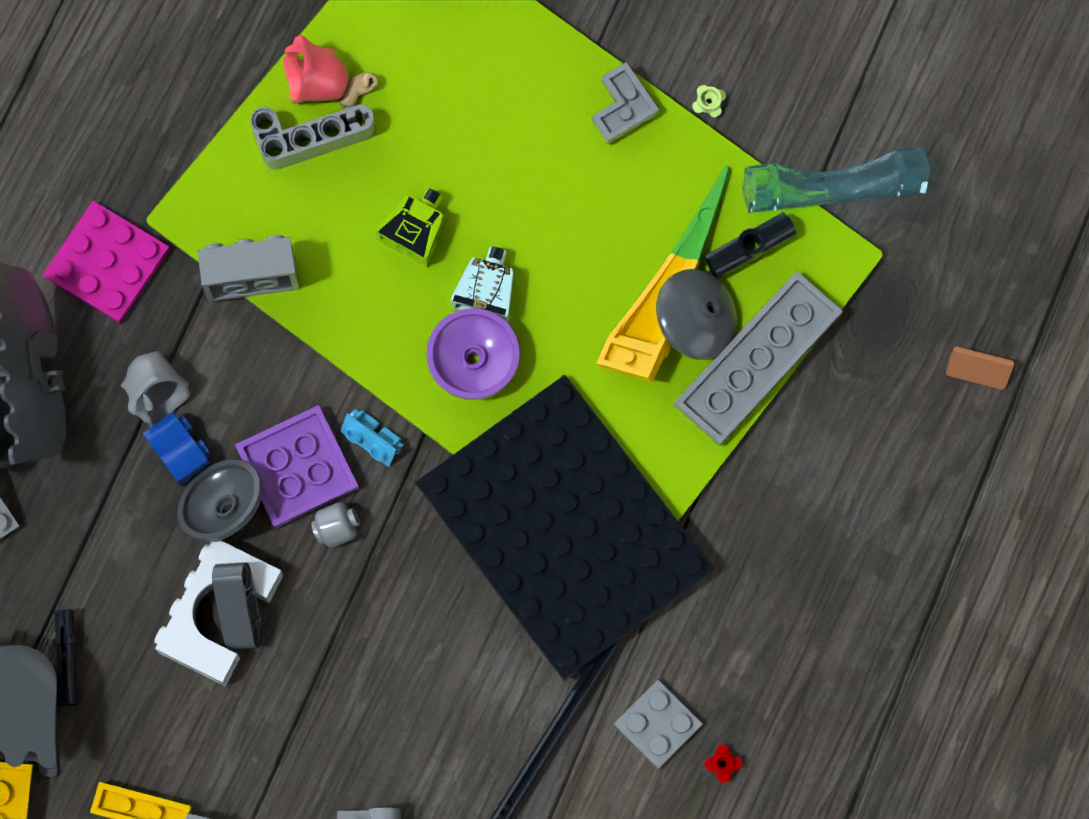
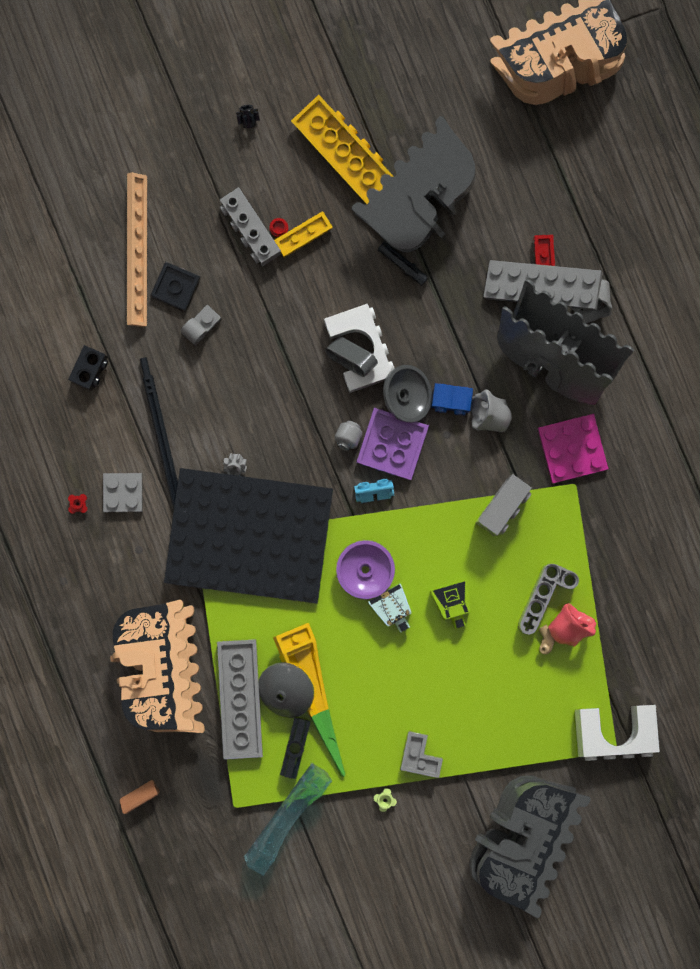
camera: 130 degrees right, 10 degrees up
(497, 622) = (235, 465): none -> light grey gear
(789, 506) = (157, 643): none -> light nougat animal

